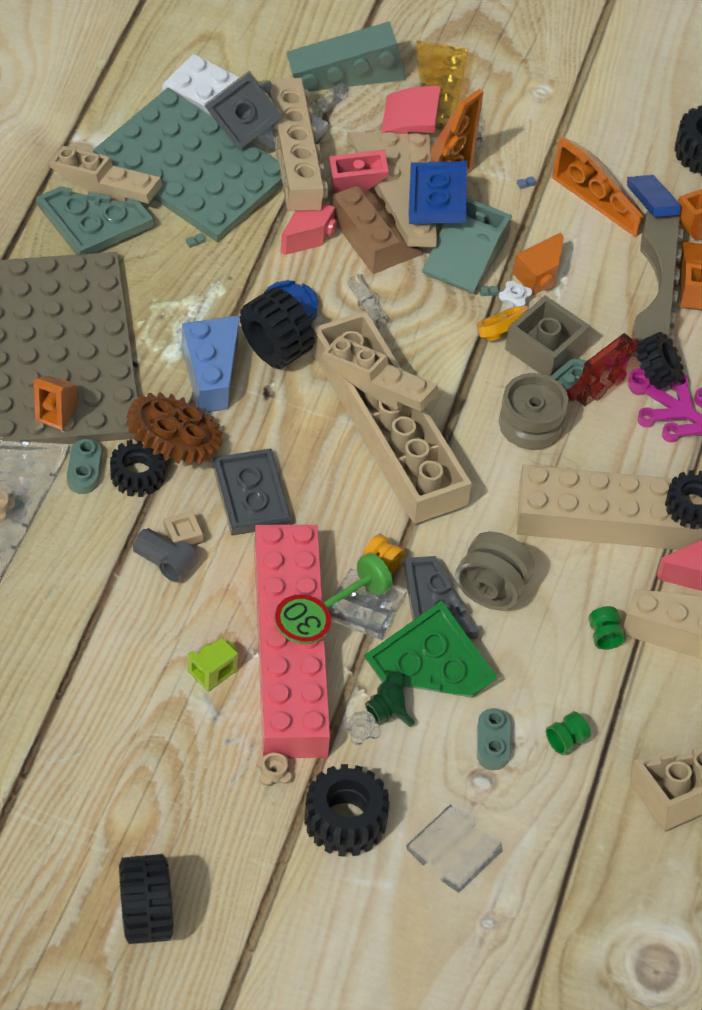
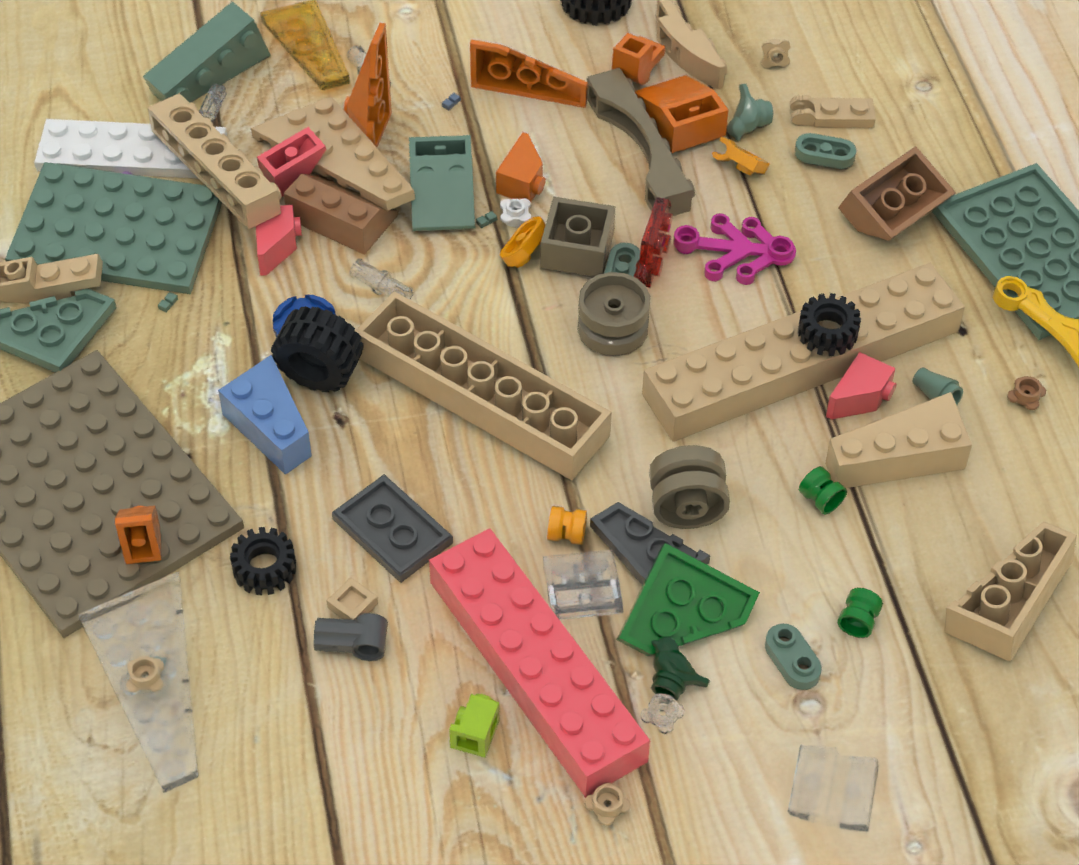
camera: 25 degrees left, 0 degrees up
(86, 464) = (203, 584): sand green plate -> none
(174, 428) = (278, 501): dark orange gear -> none
(244, 109) = (147, 147): dark grey tile -> none
(308, 620) = (547, 630): bright green piece -> none
(349, 787) = (717, 780): black tyre -> none
(374, 376) = (452, 351): tan slope -> none
(412, 110) = (300, 80): coral slope -> none
(438, 192) = (389, 144): blue plate -> none
(653, 195) = (582, 60): blue tile -> none
(659, 360) = (697, 209): black tyre -> none

